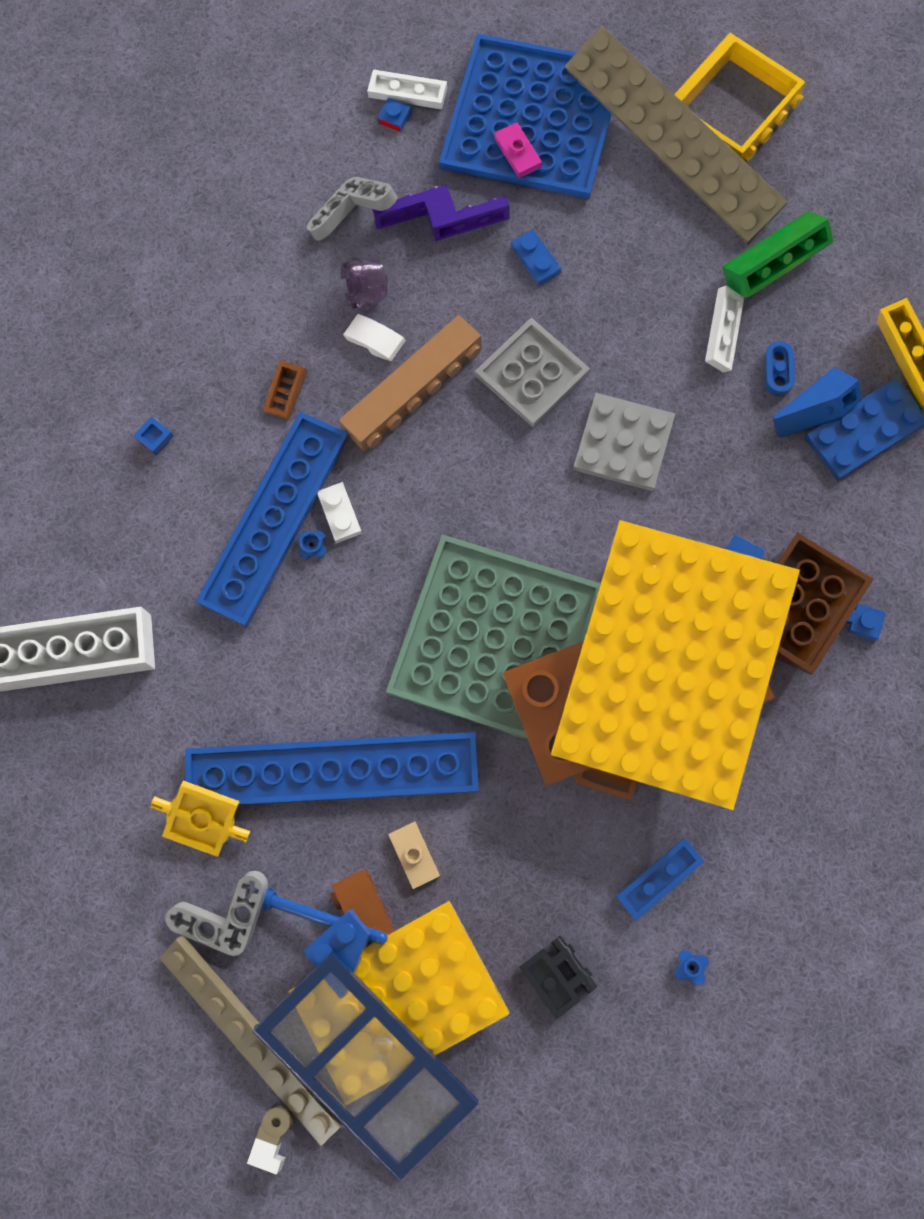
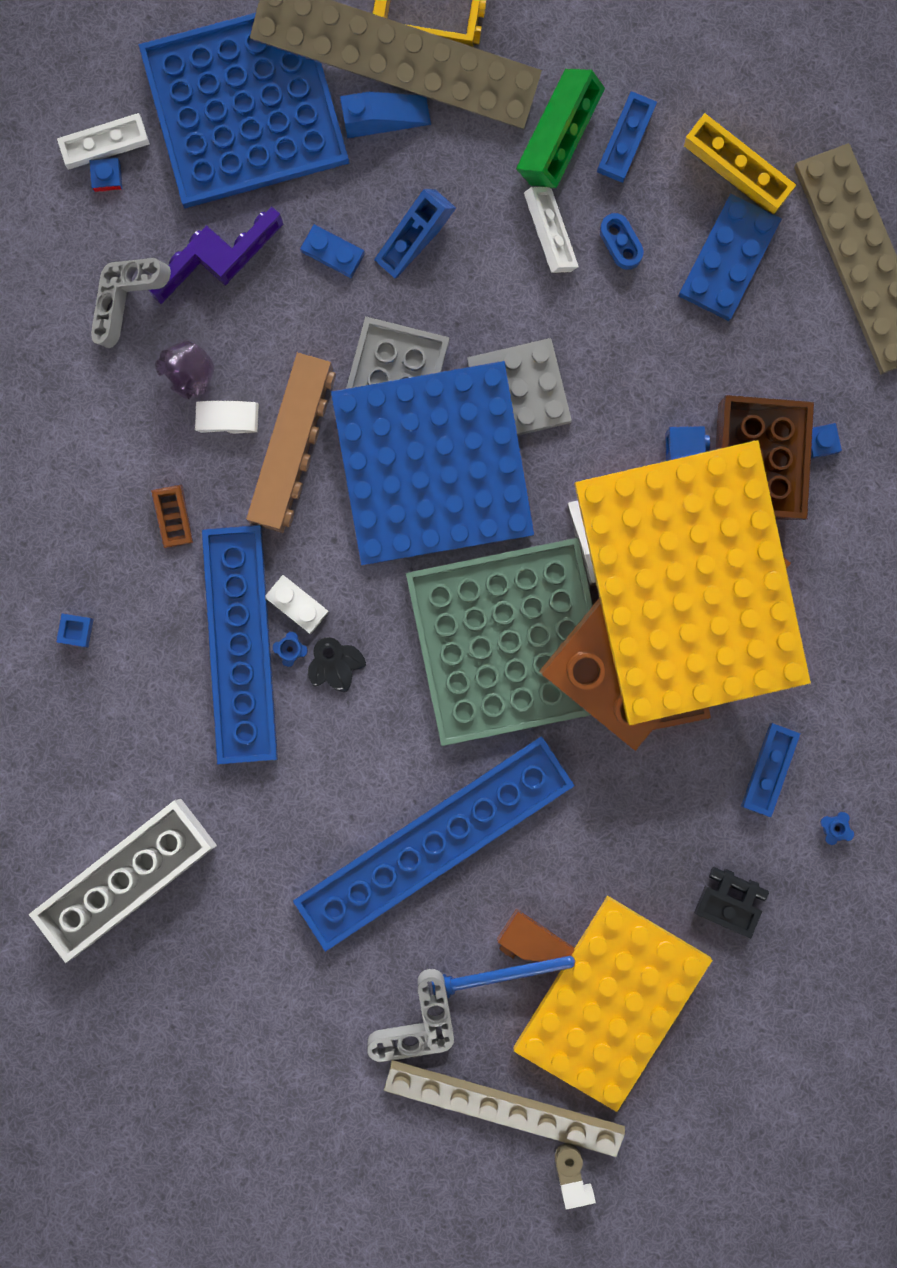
camera: 40 degrees left, 10 degrees up
(200, 818) = (346, 954): yellow plate -> none
(340, 581) = (338, 667): none -> black plate
(345, 938) = (541, 994): blue wing -> none
(365, 1066) = (616, 1072): door -> none
(414, 855) = (550, 872): tan plate -> none
(517, 460) = (432, 463): none -> blue plate
(518, 150) = (253, 151): dark pink plate -> none
(611, 274) = (415, 231): none -> blue slope
(638, 173) = (383, 112): none -> blue slope
(822, 402) = (680, 252): blue slope -> none
(831, 290) = (626, 137): none -> blue plate

